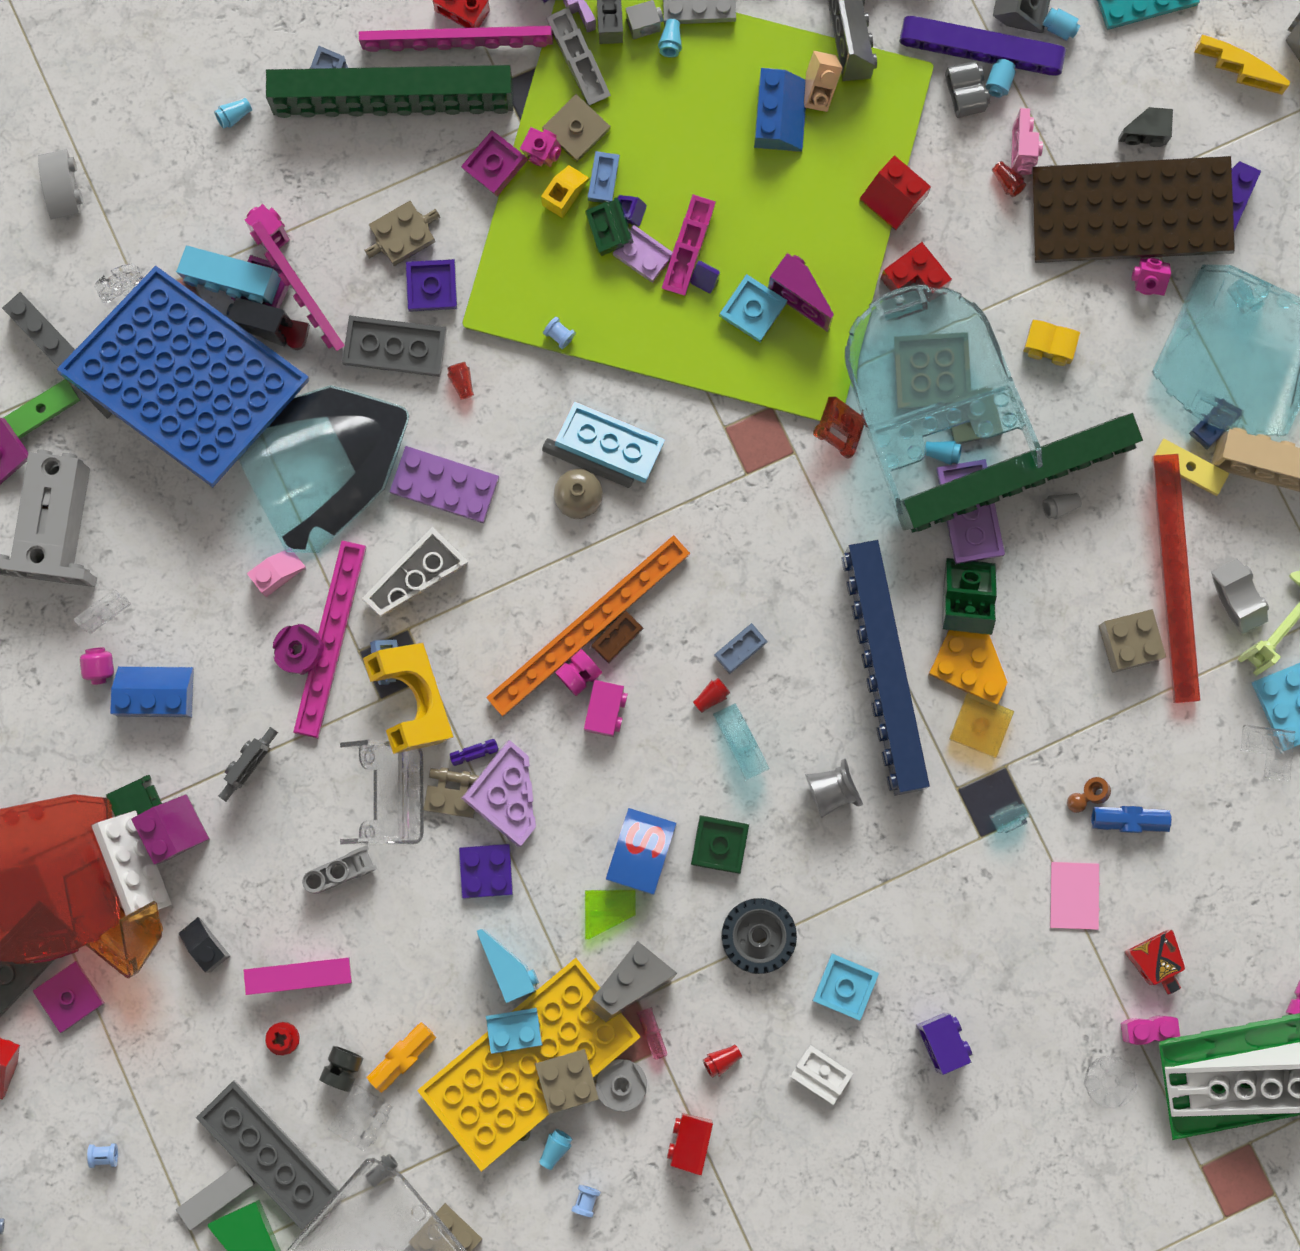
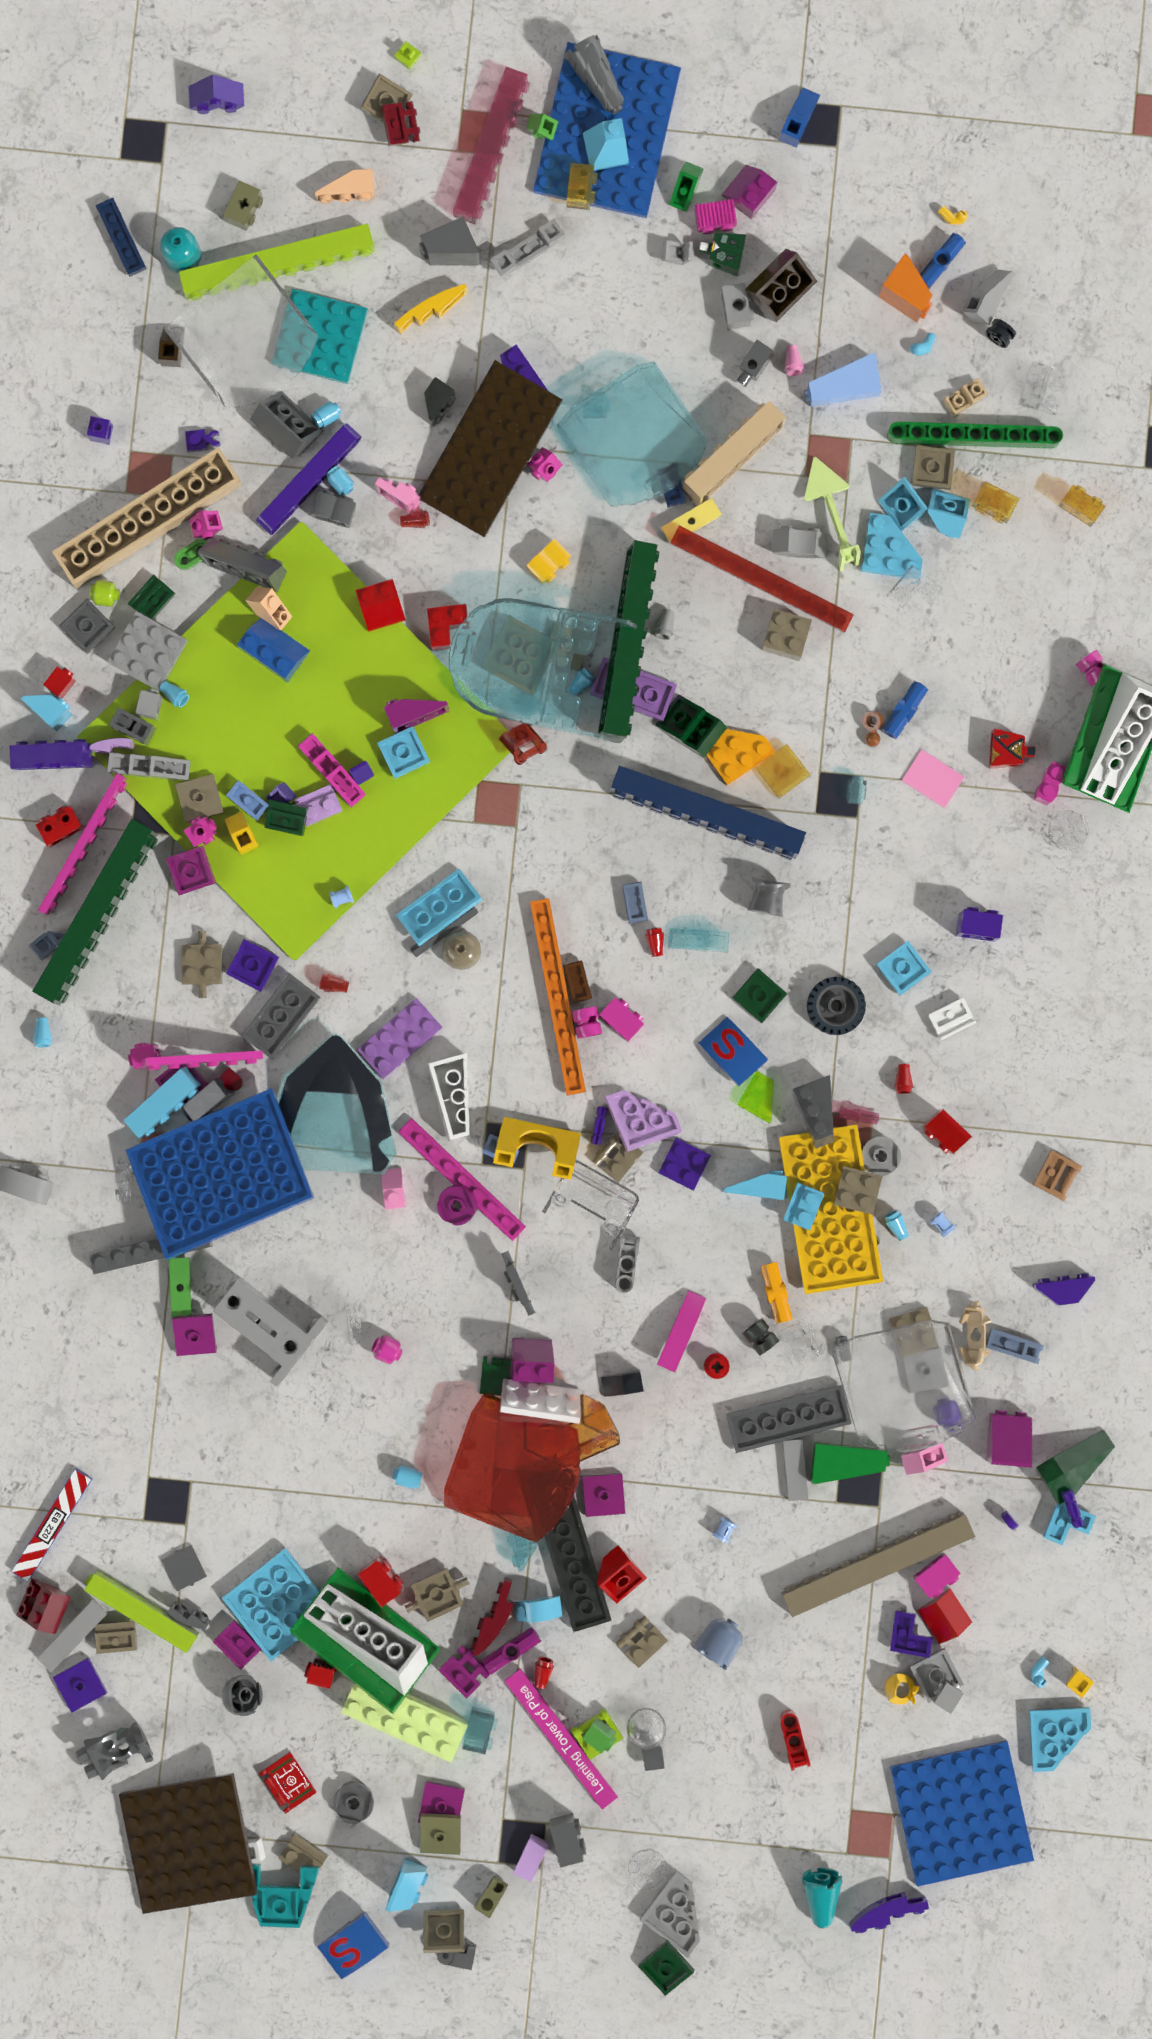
camera: 60 degrees left, 5 degrees up
(152, 692) = (427, 1321): blue slope -> none

